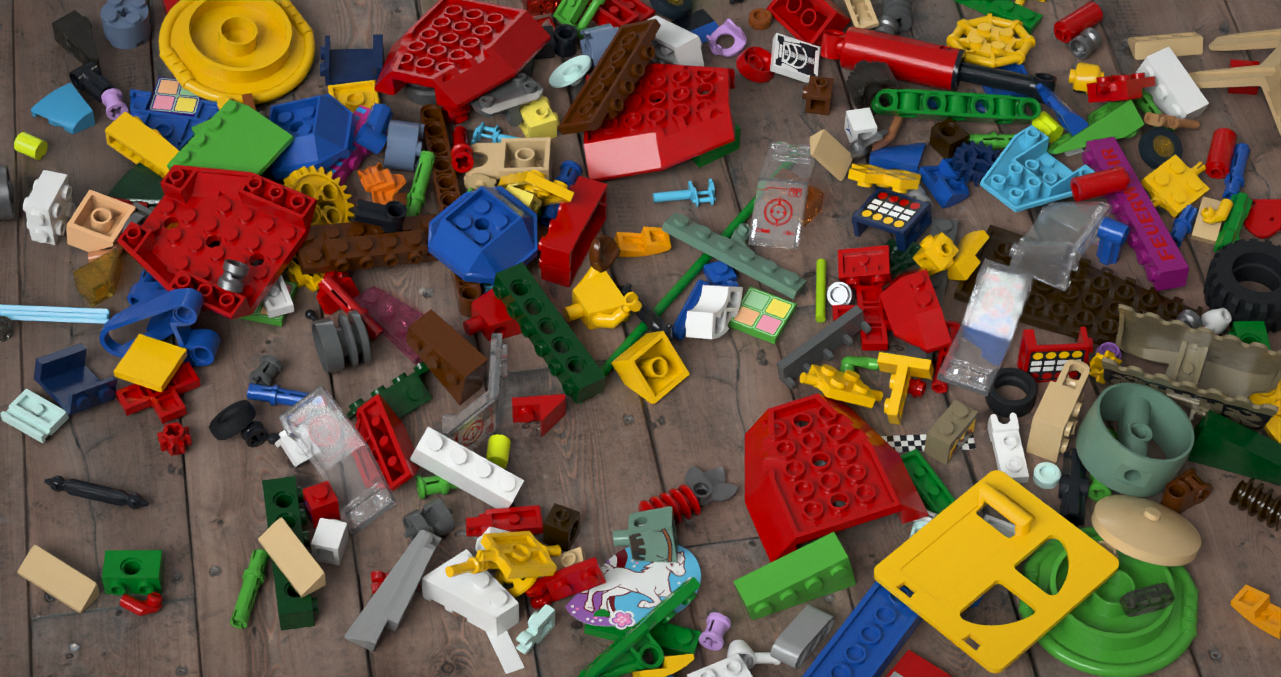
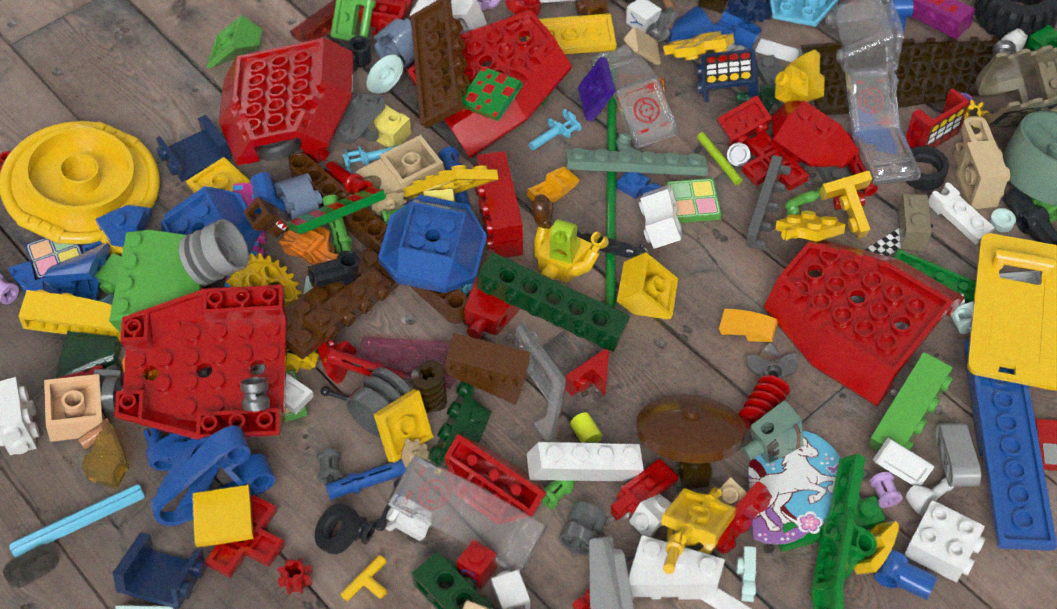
camera: 30 degrees left, 5 degrees up
(182, 115) = (77, 268): none -> blue slope
(229, 471) = (365, 579): none -> yellow piece
(246, 92) = (123, 220): none -> blue plate
(282, 147) = (213, 252): none -> light grey wheel
(341, 395) = (413, 448): none -> tan piece
(344, 367) = (402, 421): none -> yellow tile
(360, 145) = (270, 220): none -> reddish brown leg
(390, 349) = (430, 381): none -> dark brown piece
(422, 166) = (336, 210): none -> green tile
(580, 492) = (690, 429): none -> reddish brown dish
(594, 282) = (564, 238): none -> lime leg
(635, 128) = (491, 93): none -> green tile
(679, 326) = (634, 221): blue axle -> none
(718, 443) = (754, 325): none -> light orange slope
(744, 615) = (903, 462): none -> white tile
(749, 172) = (596, 89): none -> dark purple tile
(776, 113) = (582, 33): none -> yellow plate
(968, 218) = (780, 51): none -> white sticker

